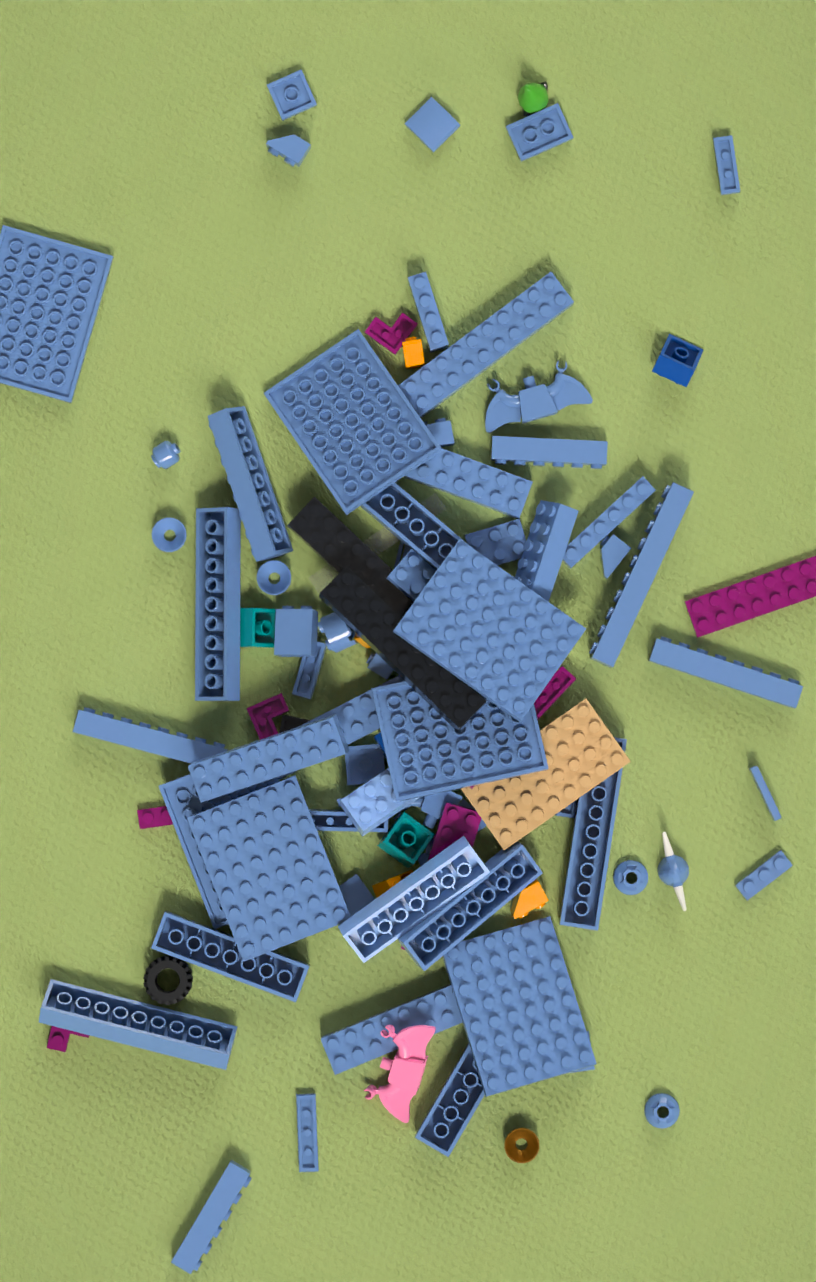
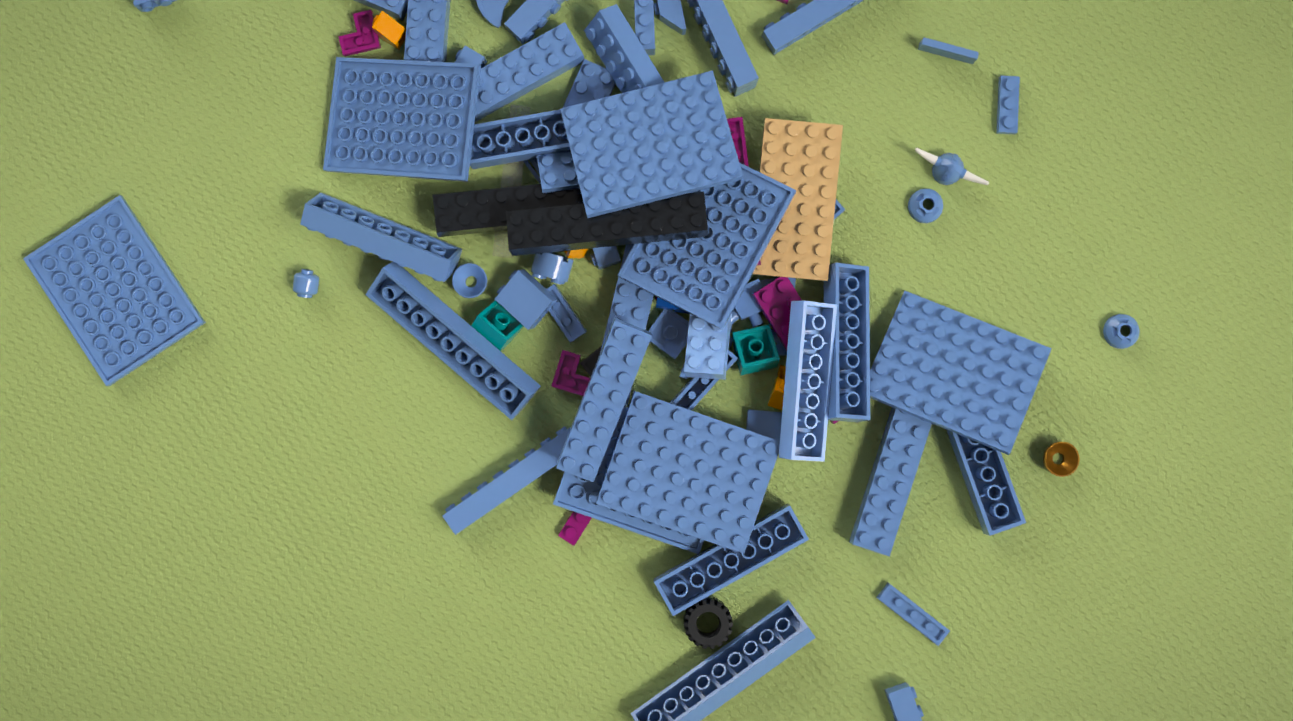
camera: 60 degrees left, 0 degrees up
(169, 524) = (359, 329): medium blue piece -> none
(405, 1069) = (931, 499): bright pink torso -> none
(528, 899) = (879, 295): light orange slope -> none
(590, 853) = (885, 220): medium blue brick -> none

